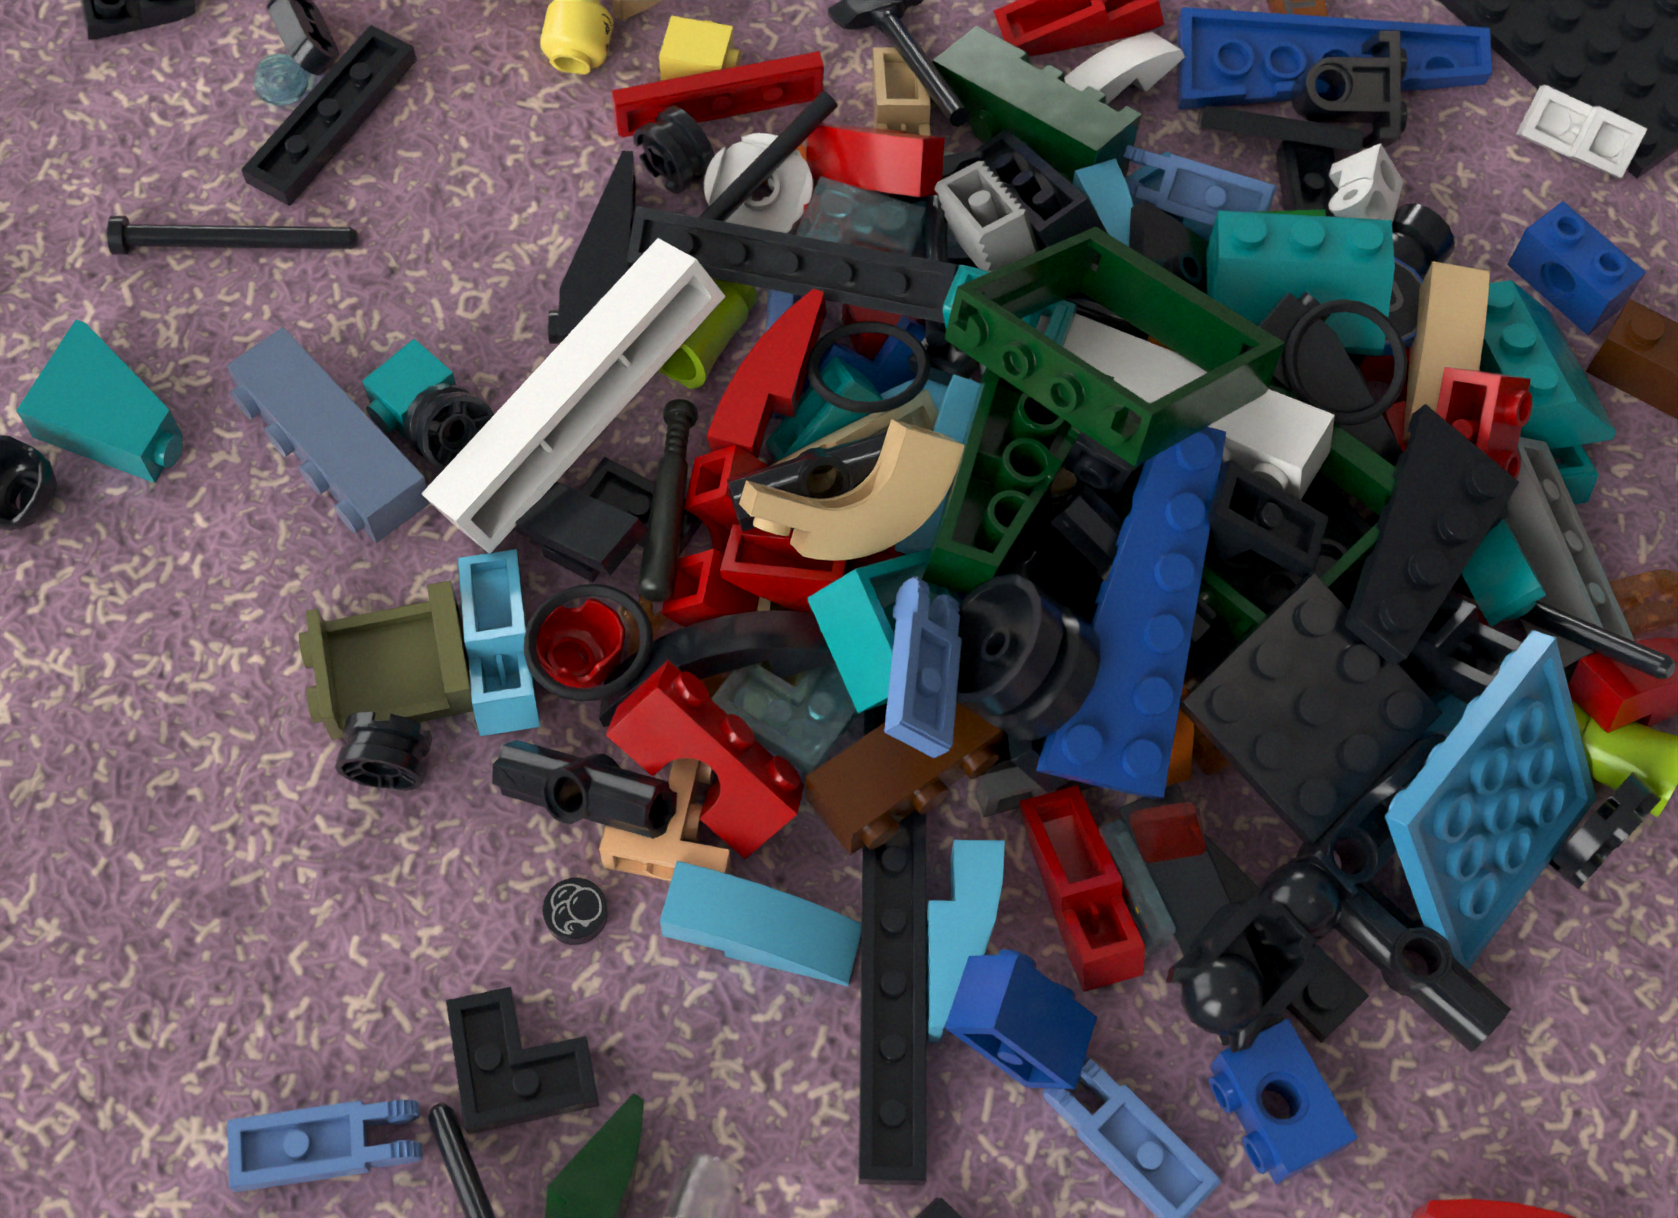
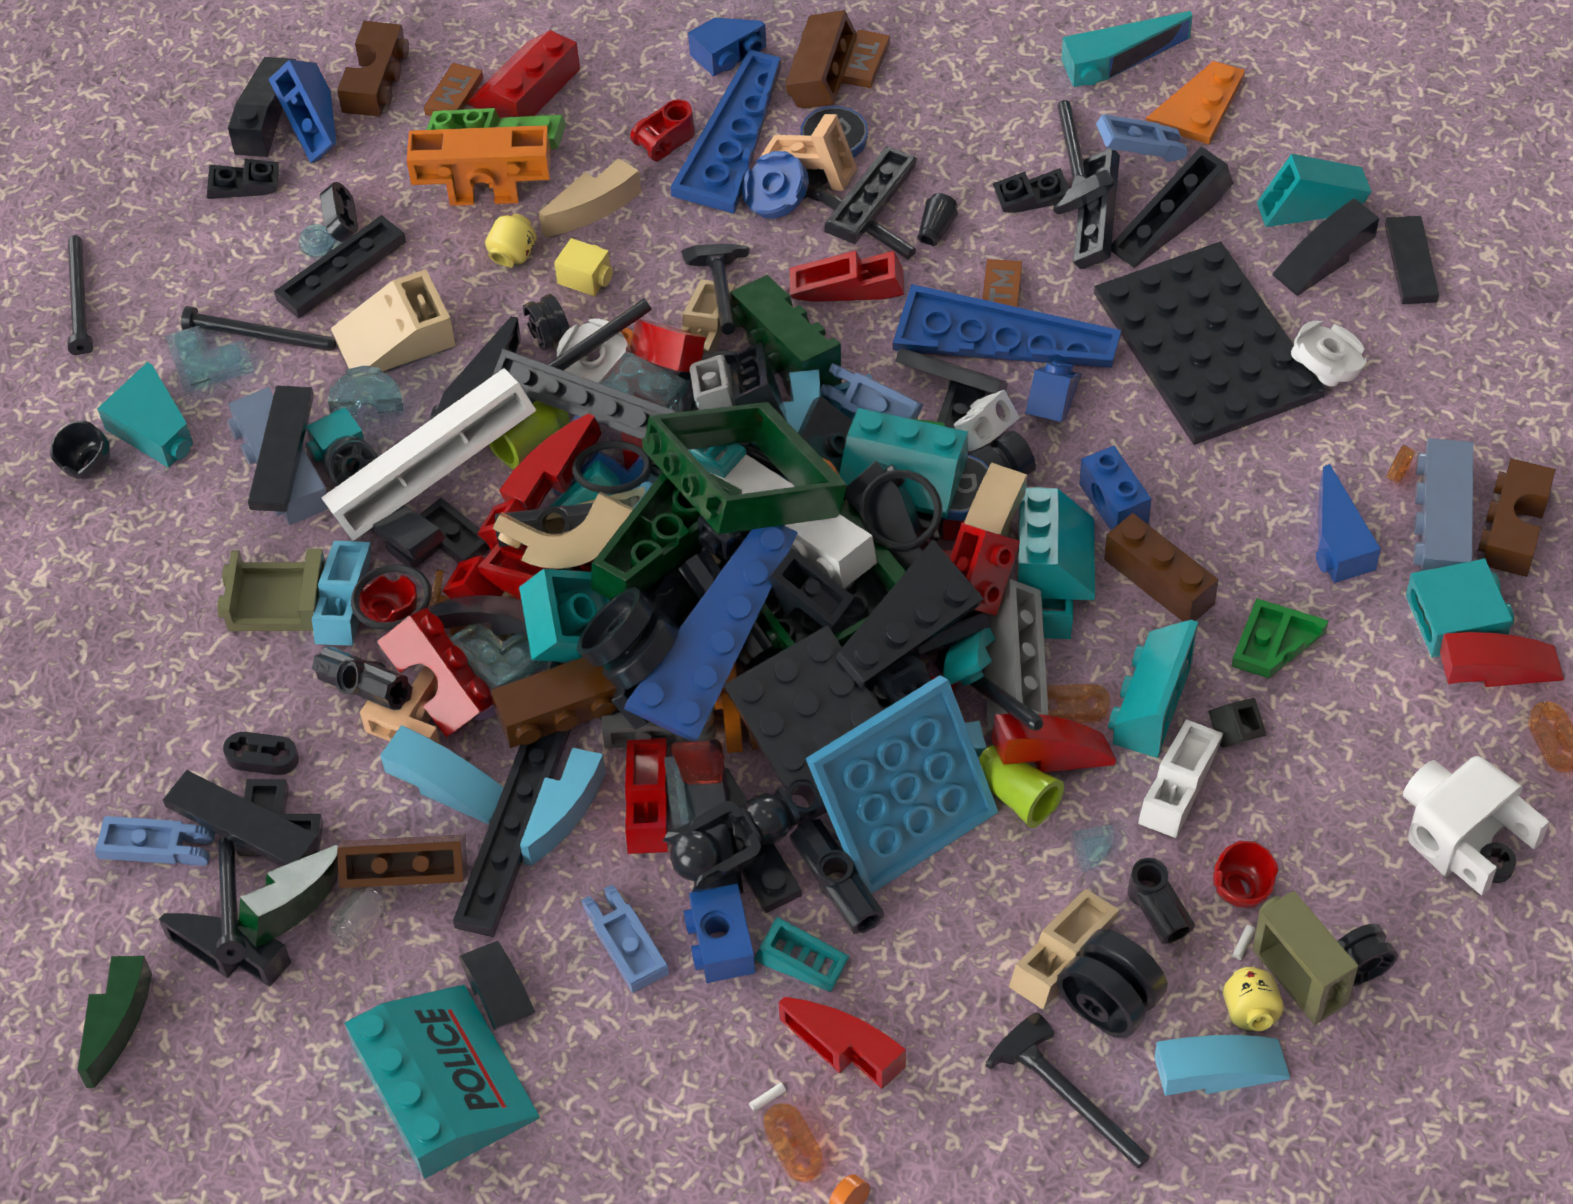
camera: 20 degrees right, 10 degrees down
(160, 309) = (206, 367): none -> clear light blue plate
(336, 428) = (281, 449): none -> black tile
(383, 752) = (253, 638): black wheel -> none
(435, 299) = (365, 386): none -> clear light blue cylinder
(446, 195) = (396, 325): none -> tan slope
(450, 929) = (261, 752): none -> black beam
(462, 1082) = (240, 820): none -> black tile
(575, 911) = (339, 750): black tile -> none
(664, 526) = (464, 534): pearl dark grey piece -> none
(722, 92) = (591, 291): red tile -> none
(749, 1095) = (402, 861): none -> reddish brown brick
(924, 669) = (565, 633): medium blue hinge -> none
(1021, 1020) = (575, 851): blue brick -> none
(1133, 60) = (873, 313): white slope -> none
(1361, 88) = (1012, 354): black pin -> none
(1363, 1096) = (782, 962): none -> teal slope
(1434, 134) = (1053, 391): none -> blue slope
(1581, 131) = (1159, 407): white slope -> none
(1604, 830) = (979, 820): black plate -> none

